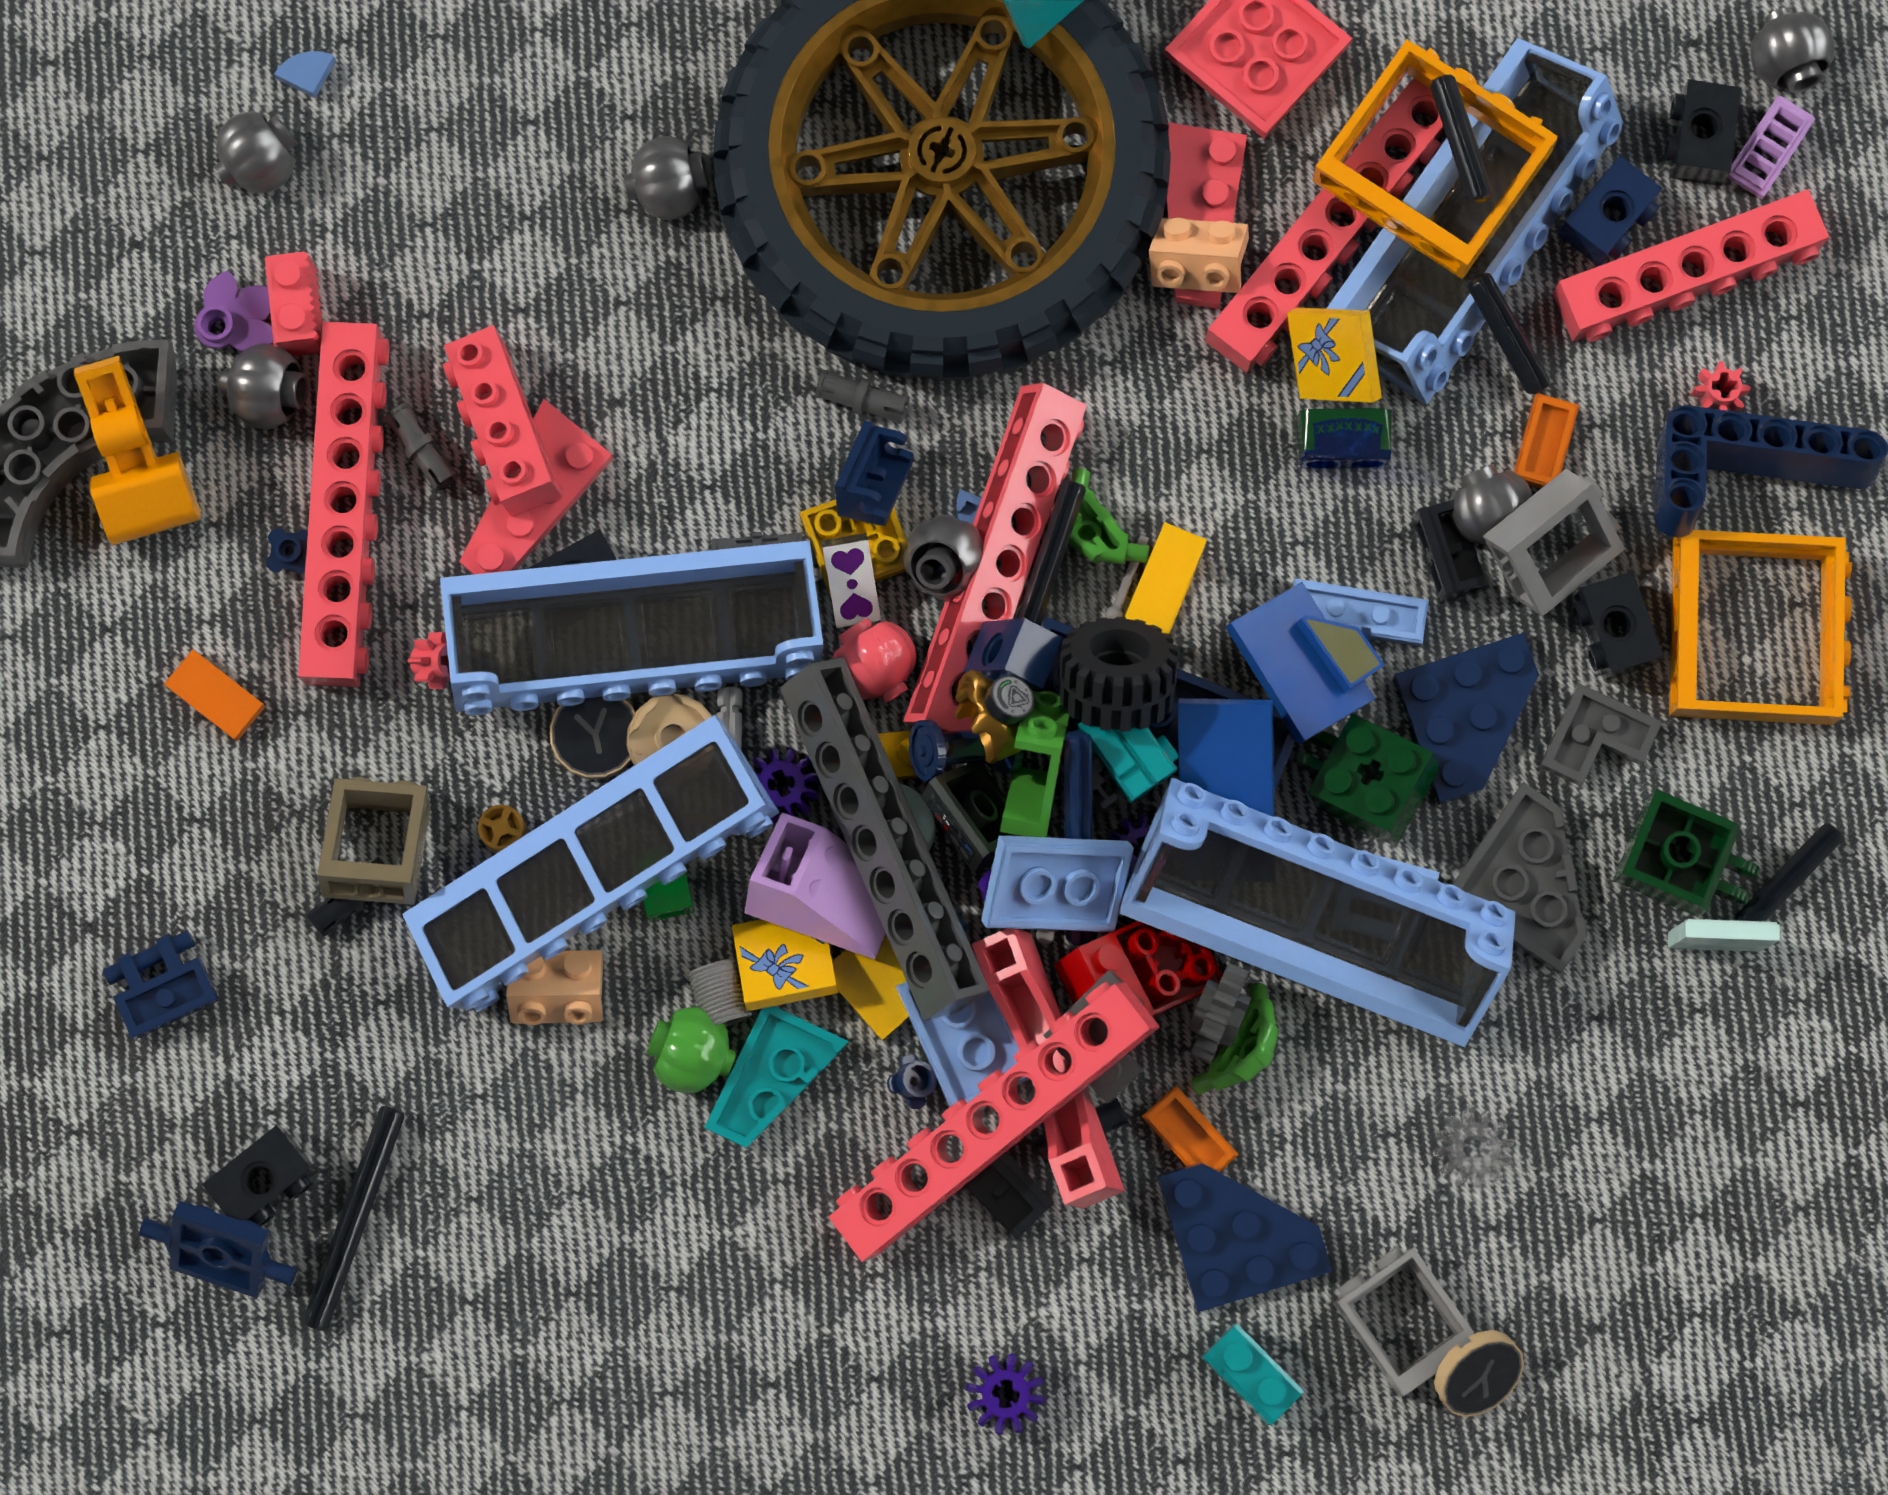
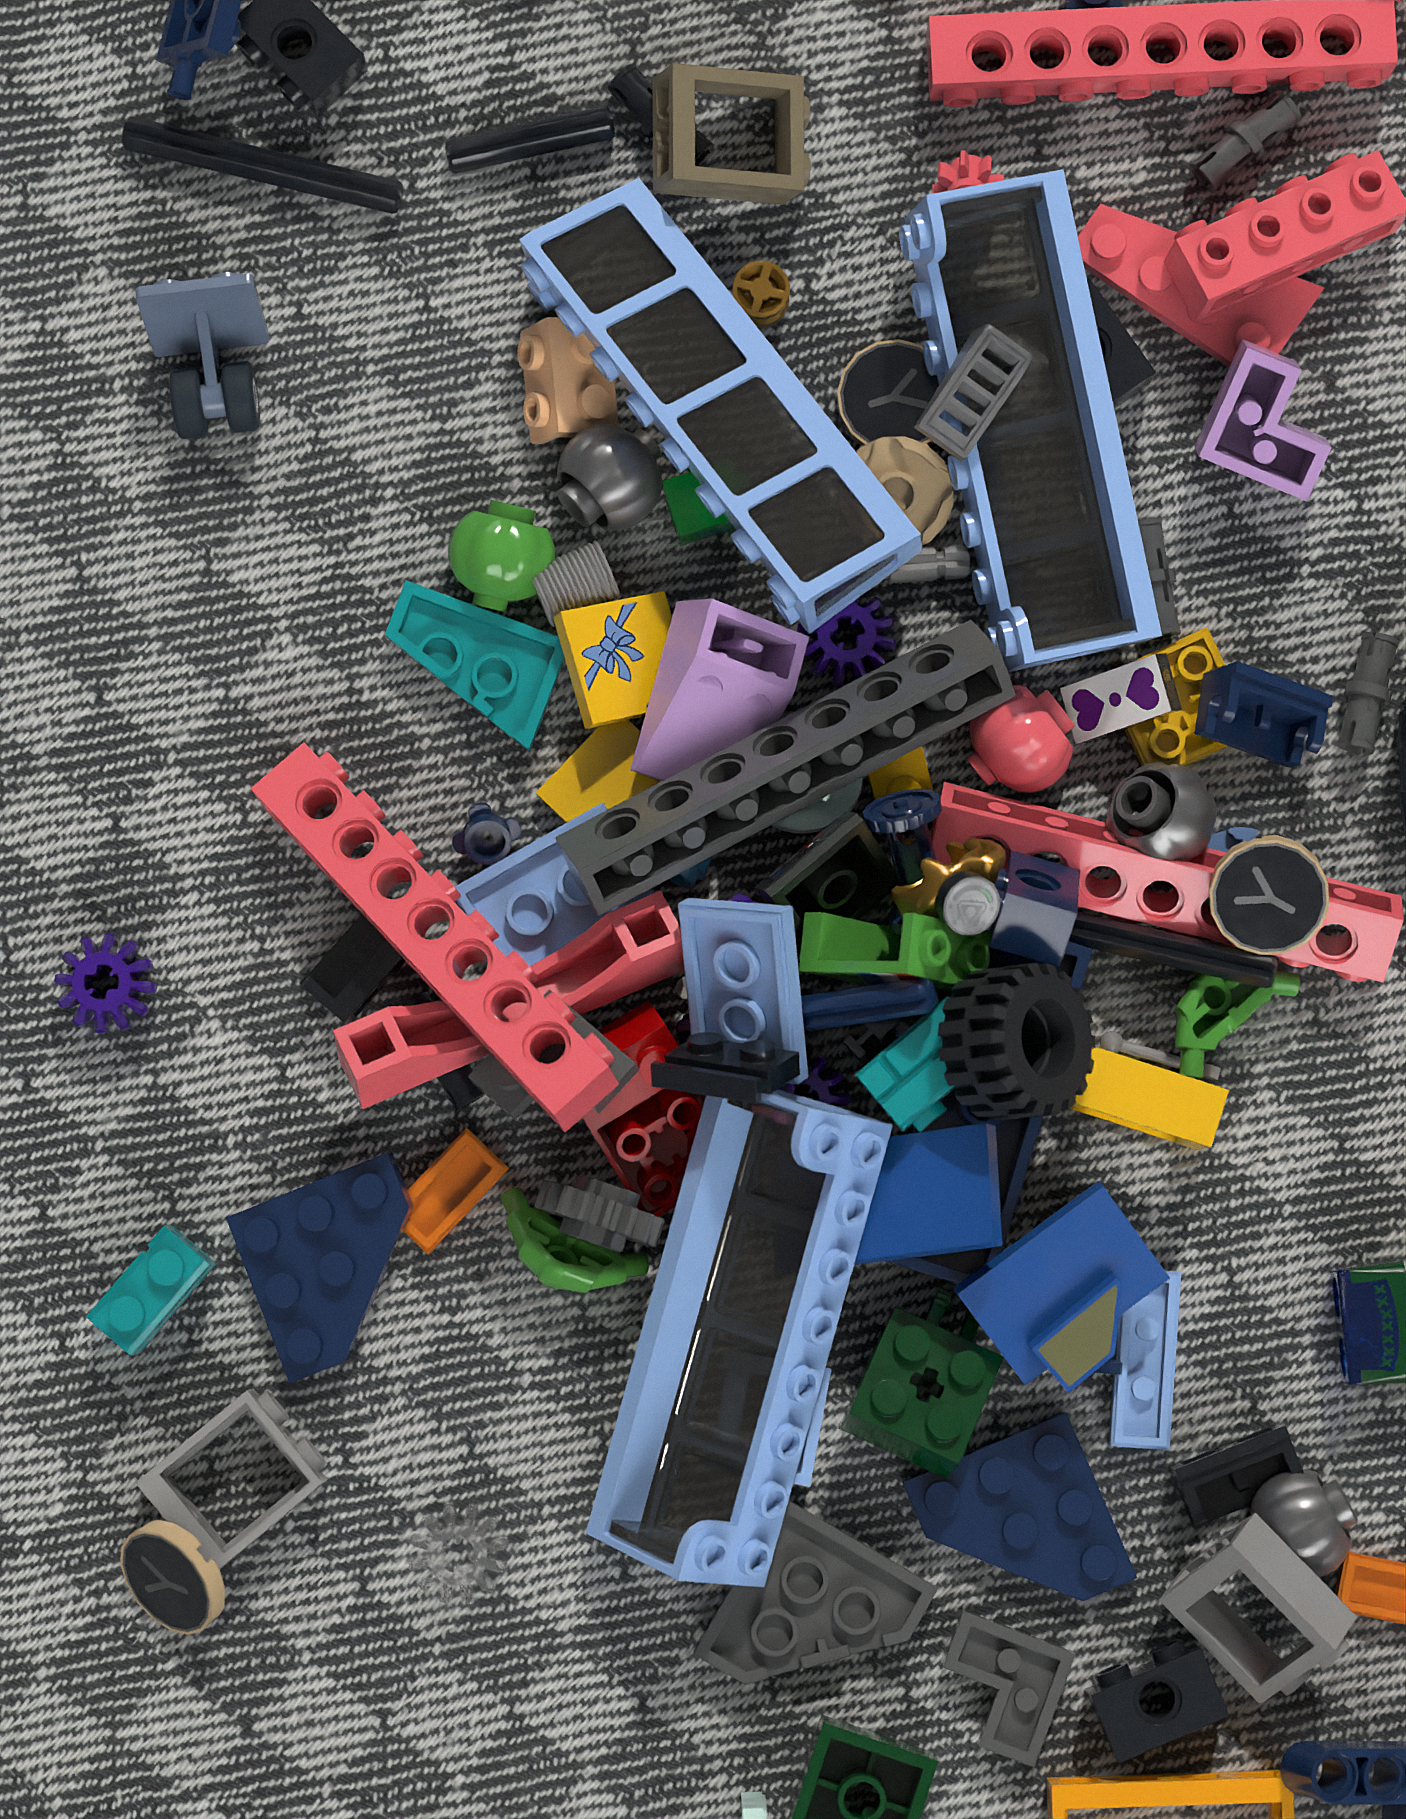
camera: 85 degrees right, 5 degrees up
(357, 1001) = (530, 139): none -> black axle
(477, 1270) = (205, 319): none -> sand blue plate
(597, 642) = (1002, 352): none -> flat silver slope
(637, 959) = (609, 476): none -> flat silver plant
(650, 463) = (1247, 428): none -> lavender brick
(1016, 479) = (1269, 895): none -> black tile
(1118, 900) = (726, 1068): none -> black plate

